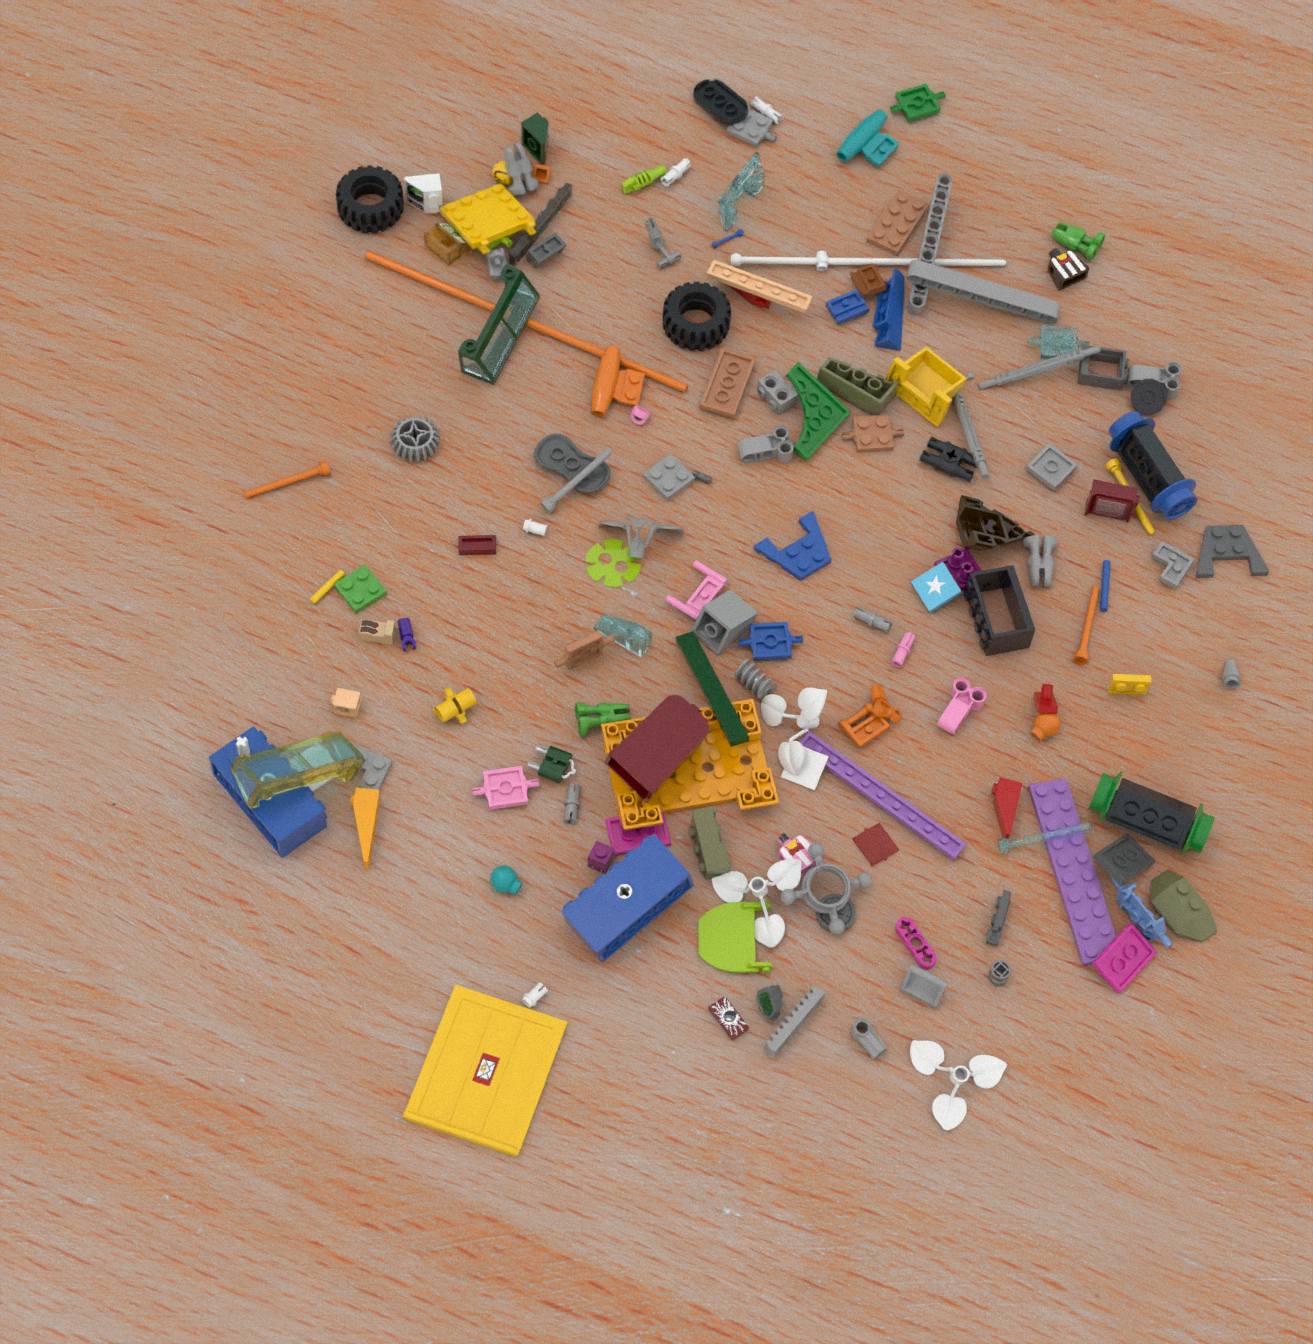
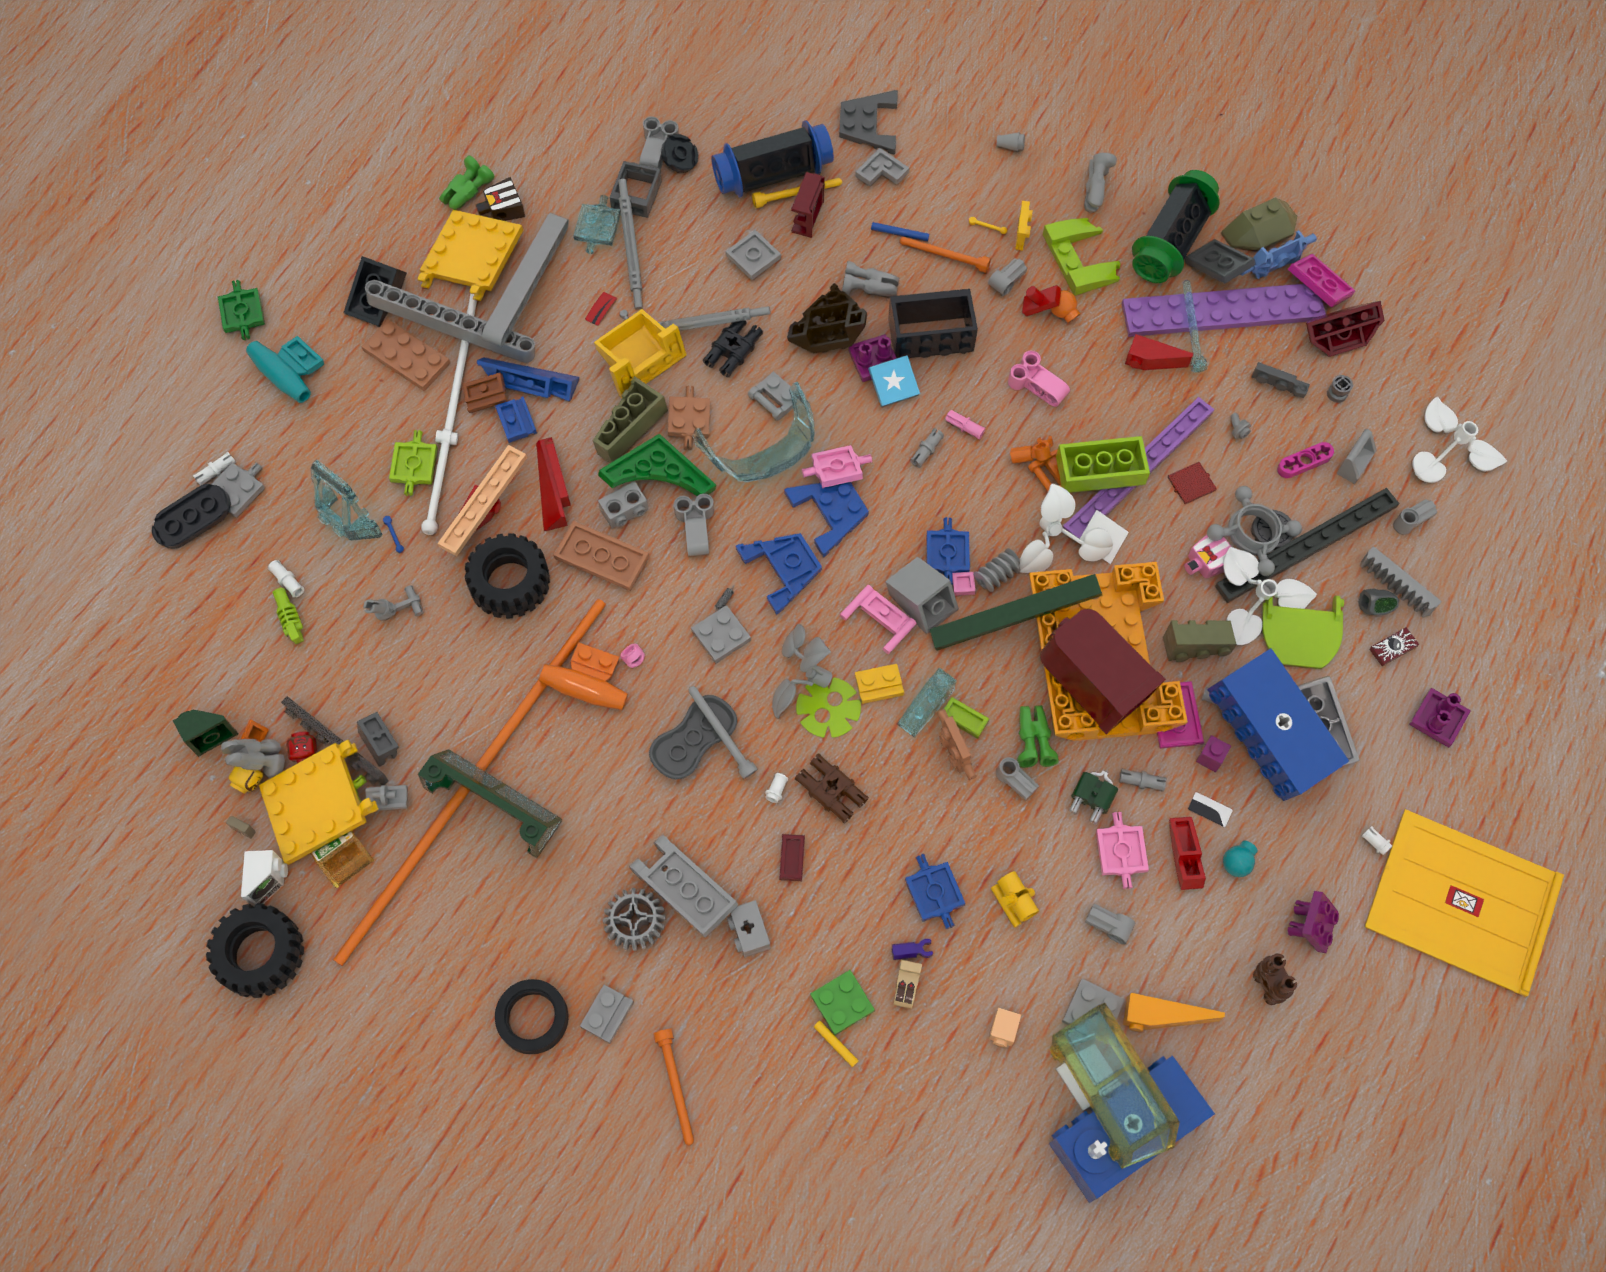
camera: 80 degrees left, 5 degrees up
(331, 361) = (518, 991): none -> black tyre
(340, 430) = (606, 1014): none -> light grey plate
(395, 894) = (1274, 979): none -> reddish brown pin
(413, 517) = (758, 939): none -> light grey brick
(439, 782) = (1115, 925): none -> light grey piece
(441, 466) = (686, 888): none -> light grey hinge
(452, 938) = (1319, 921): none -> magenta plate
(456, 647) = (935, 891): none -> blue plate
(465, 176) = (241, 827): none -> dark tan tile
(507, 838) = (1187, 853): none -> red slope
(533, 203) = (301, 746): none -> red head
(538, 566) = (831, 778): none -> reddish brown pin
(552, 861) = (1210, 809): none -> sticker
(561, 704) = (1018, 780): none -> light grey piece
(614, 664) = (966, 717): none -> lime tile
(638, 597) = (879, 683): none -> yellow plate
(652, 949) = (1325, 702): none -> light grey wedge
(660, 1053) = (1440, 716): none -> magenta plate
(740, 654) = (963, 583): none -> bright pink tile
(741, 522) = (791, 561): none -> blue wing
(791, 343) = (552, 486): none -> red wedge
(793, 241) = (413, 463): none -> lime plate
(832, 953) = (1317, 539): none -> pearl dark grey plate
(833, 491) = (778, 456): none -> clear light blue piece
(840, 547) = (837, 466): none -> bright pink plate
(870, 753) = (1102, 464): none -> lime brick
(910, 502) = (777, 390): none -> light grey plate
(937, 883) = (1242, 428): none -> light grey plate
(964, 192) = (357, 301): none -> black slope
(973, 357) = (600, 308): none -> red sticker
(1007, 252) = (470, 252): none -> yellow plate
(1066, 673) = (1004, 280): none -> light grey piece
(1067, 973) = (1345, 328): none -> dark red wedge
(1127, 721) = (1079, 278): none -> lime wedge
(1131, 648) = (972, 221): none -> yellow hinge
(1194, 746) = (1095, 186): none -> light grey piece

